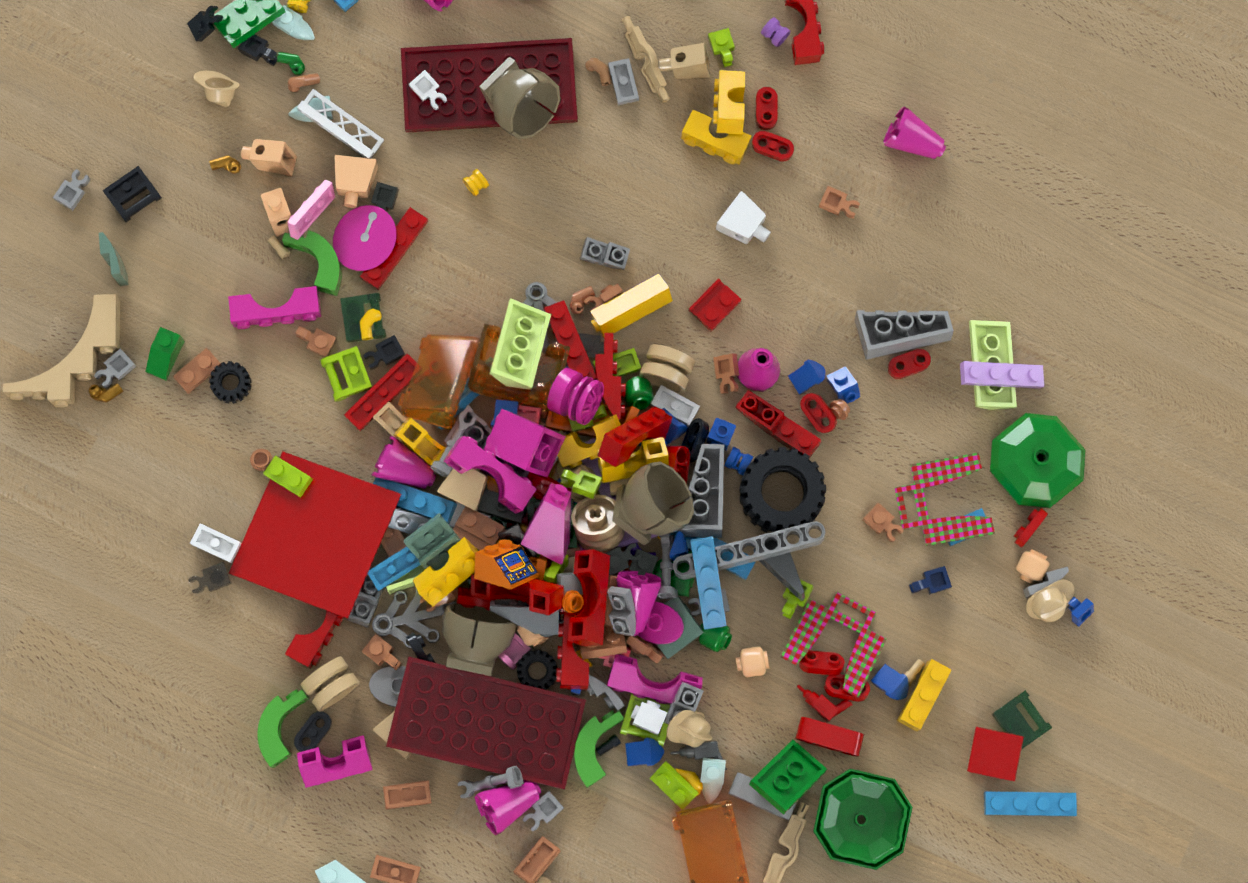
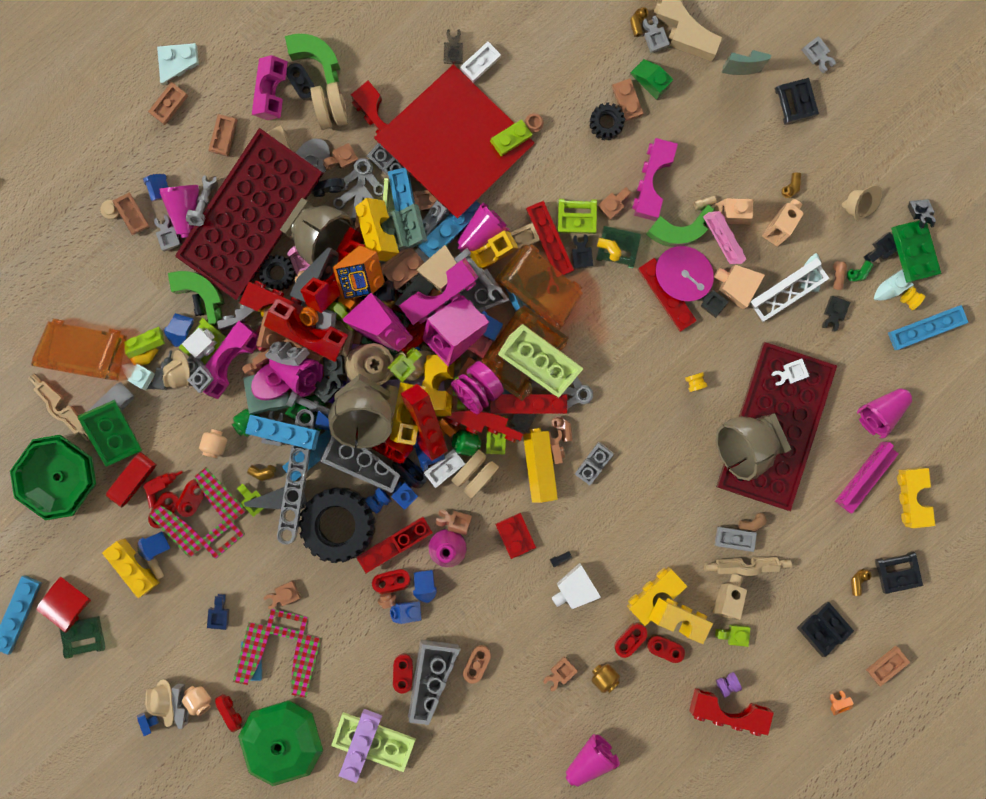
camera: 115 degrees right, 10 degrees up
(340, 71) = (836, 310): none -> pearl dark grey plate
(493, 845) = (154, 183): none -> blue tile
(723, 252) = (556, 561): none -> black piece
(763, 596) = (263, 474): none -> pearl gold arm
(822, 155) = (605, 678): none -> pearl gold head
(865, 290) = (476, 663): none -> nougat plate

